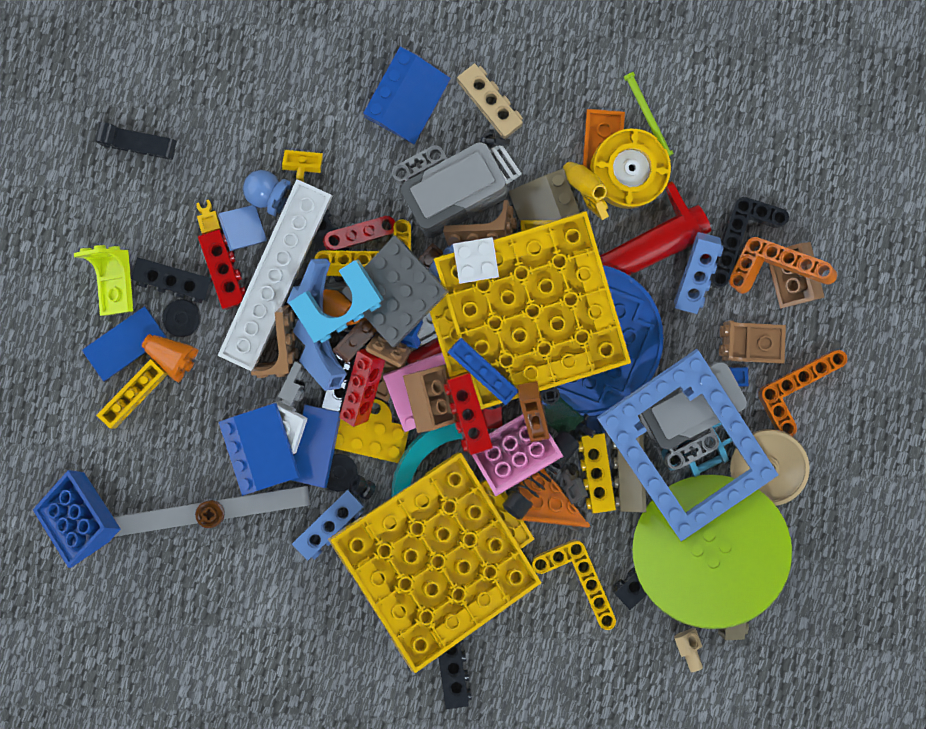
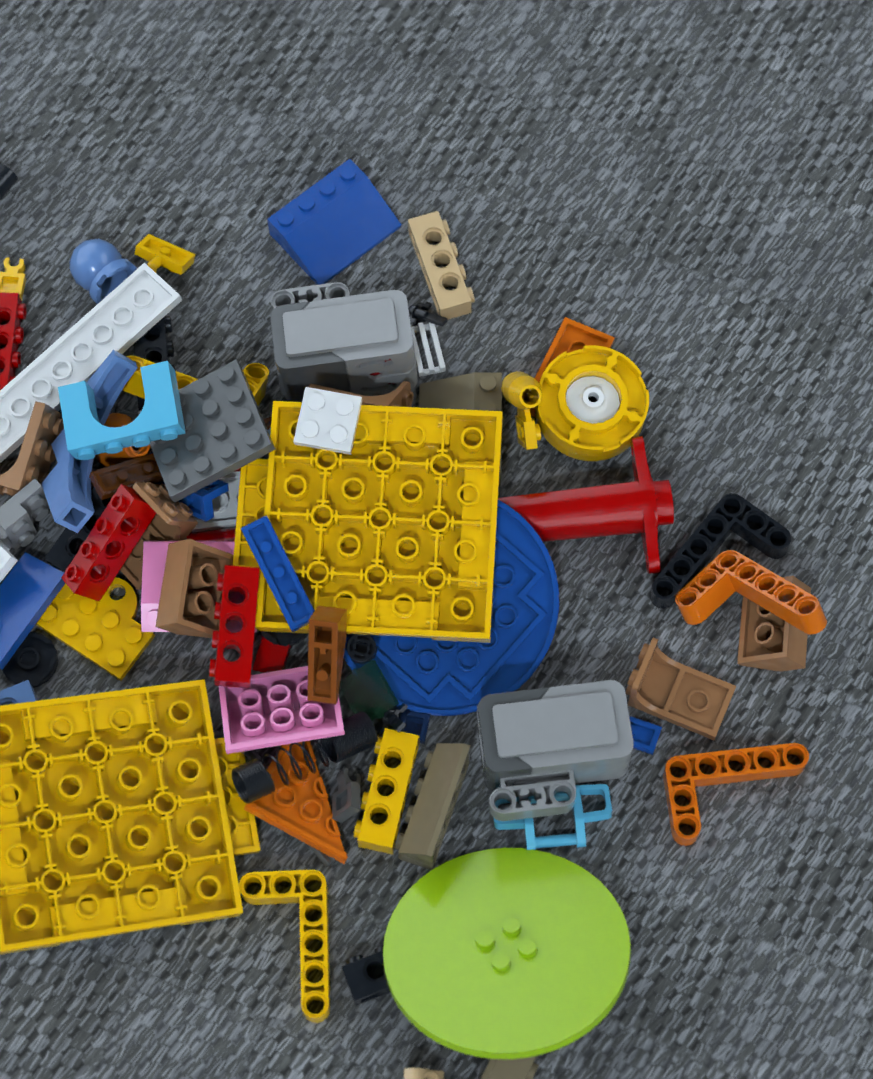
camera: 25 degrees right, 20 degrees down
(242, 227) = (48, 304): medium blue tile -> none
(359, 233) = (192, 360): plate -> none
(362, 487) = (50, 684): black wheel -> none
(418, 451) = (161, 660): teal arch -> none
(453, 698) = (39, 1033): black brick -> none
(624, 427) = (443, 710): medium blue plate -> none
(646, 111) = (639, 302): lime bar -> none
(702, 245) = (603, 598): medium blue brick -> none
(788, 460) = (646, 868): tan dish -> none

